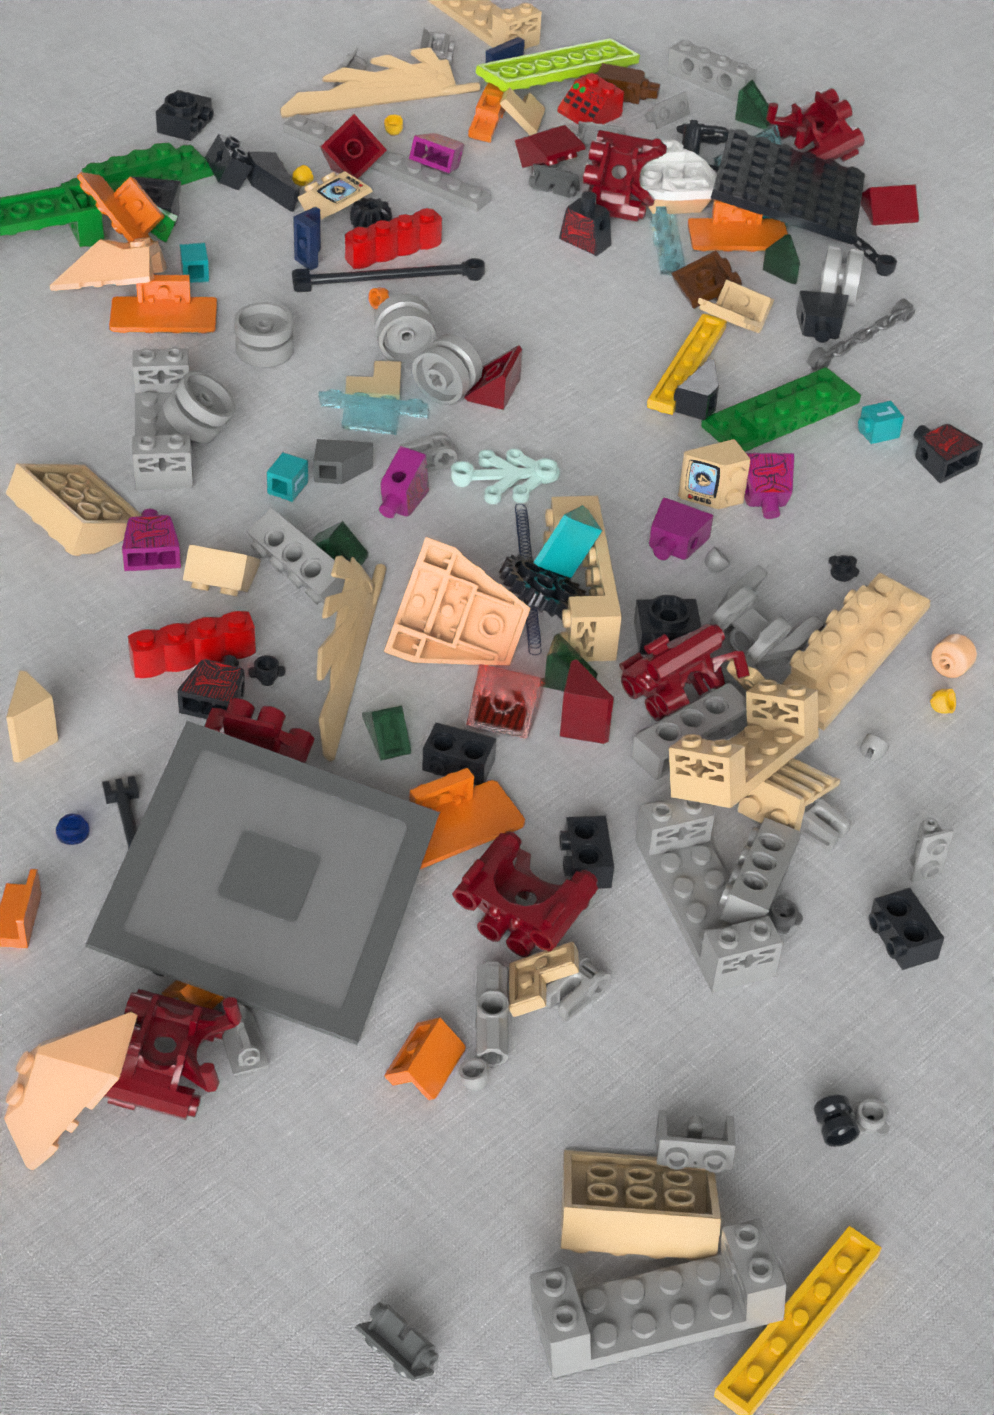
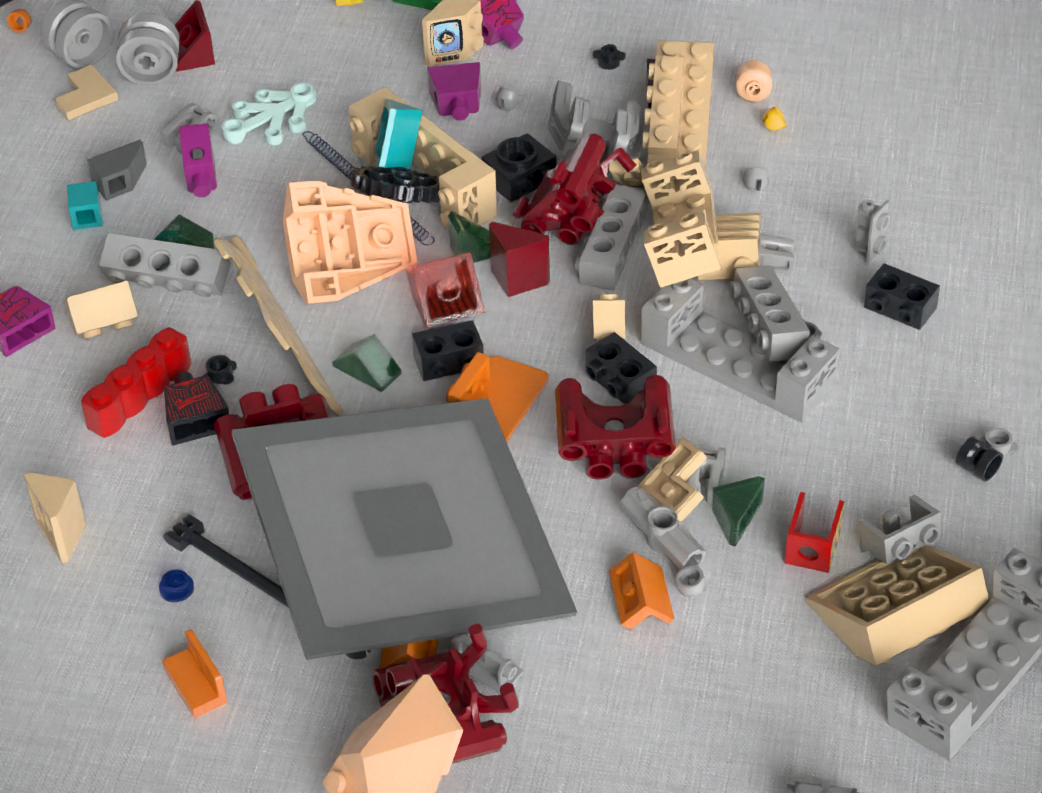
camera: 30 degrees left, 0 degrees up
(372, 413) = (107, 118): clear light blue bracket -> none
(576, 1032) = (736, 506): none -> clear green slope
(619, 800) = (608, 316): none -> slope
(627, 1113) = (824, 546): none -> red piece

